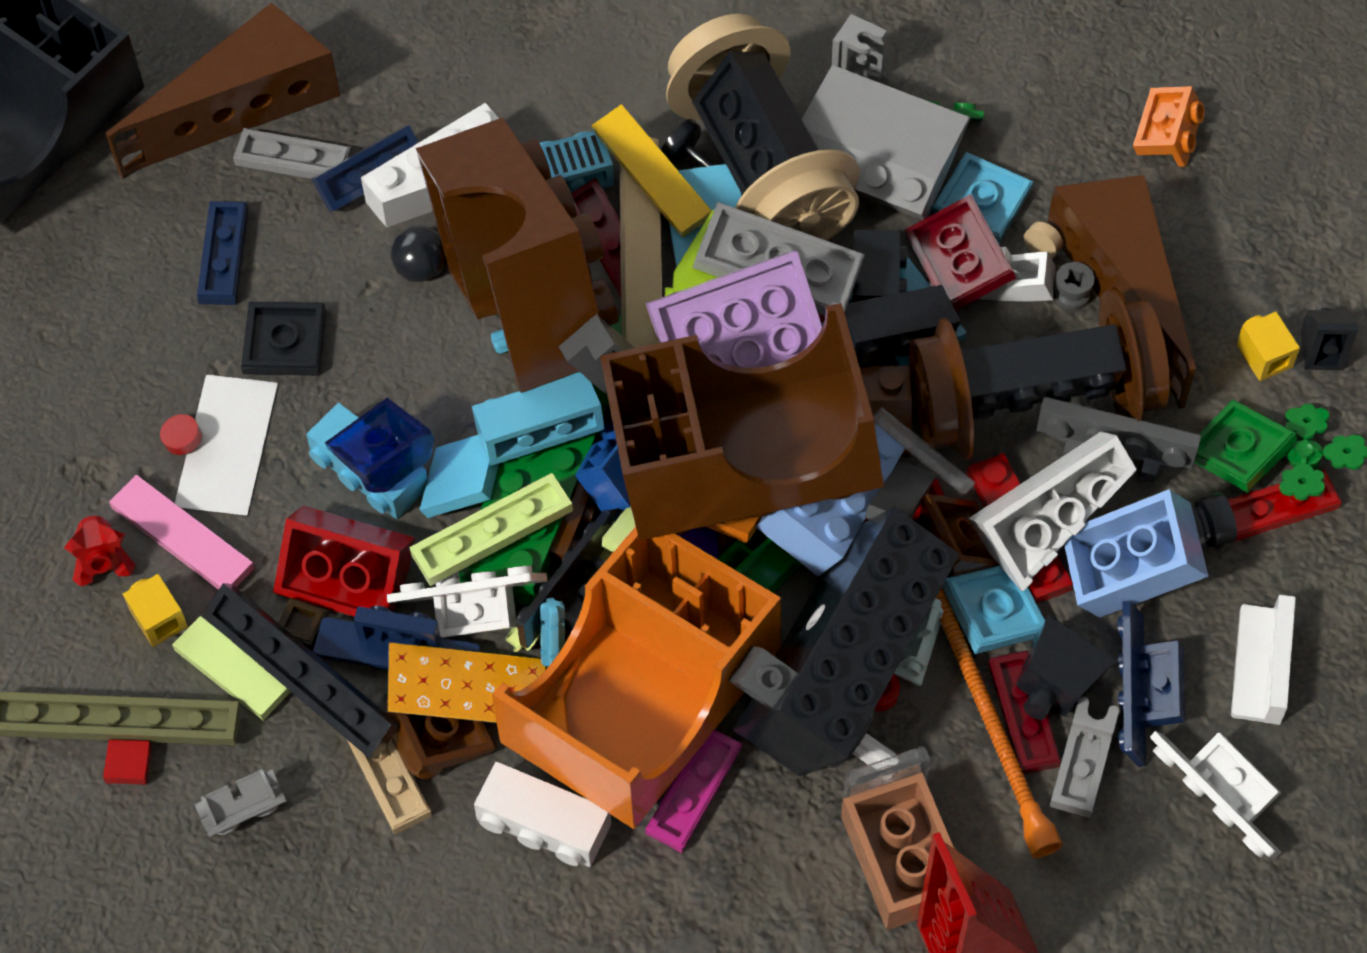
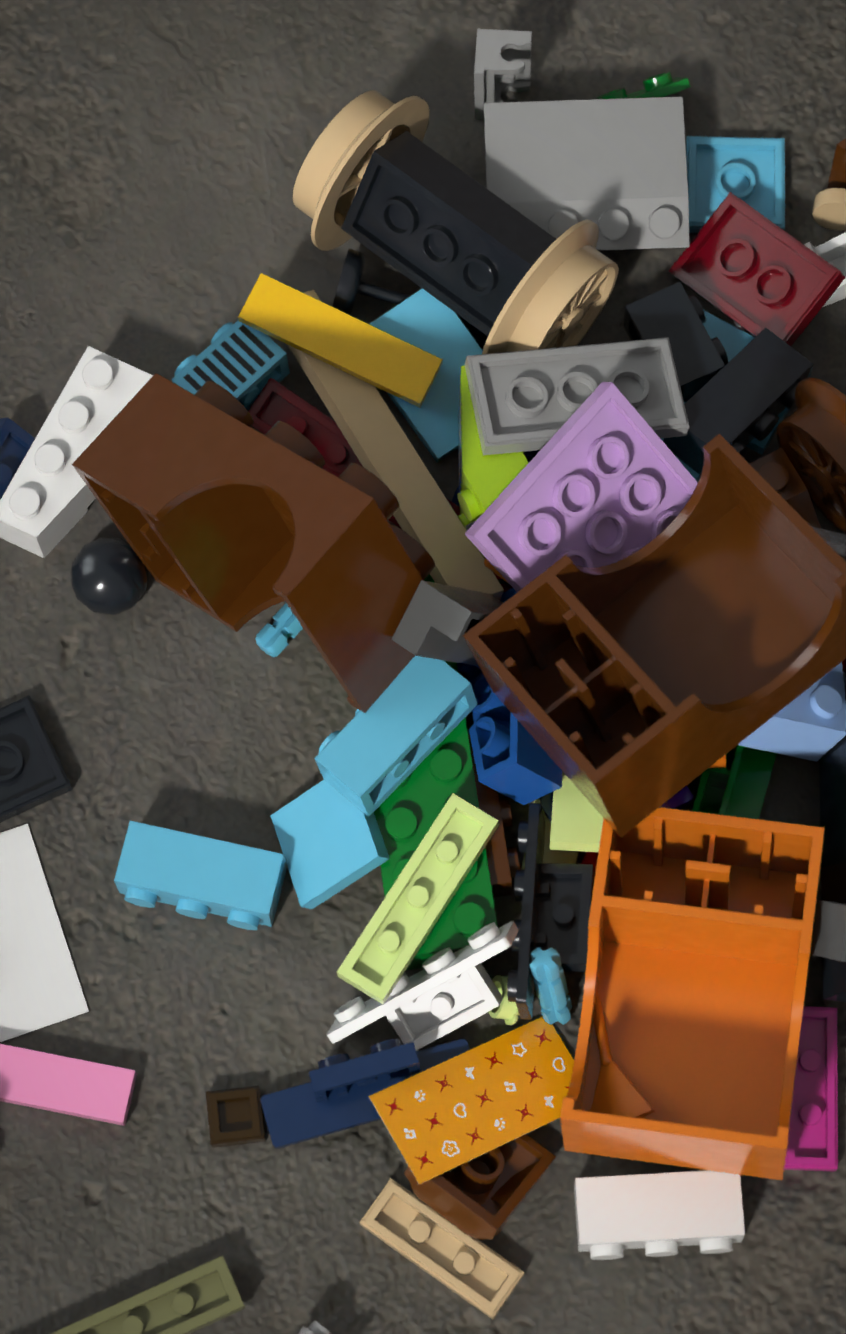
camera: 25 degrees left, 10 degrees up
(155, 609) = (52, 1189): yellow brick -> none
(230, 668) = (184, 1214): yellowish green tile -> none
(301, 671) = (276, 1180): black plate -> none
(340, 561) = (245, 1018): red slope -> none
(383, 446) = (223, 854): clear blue slope -> none

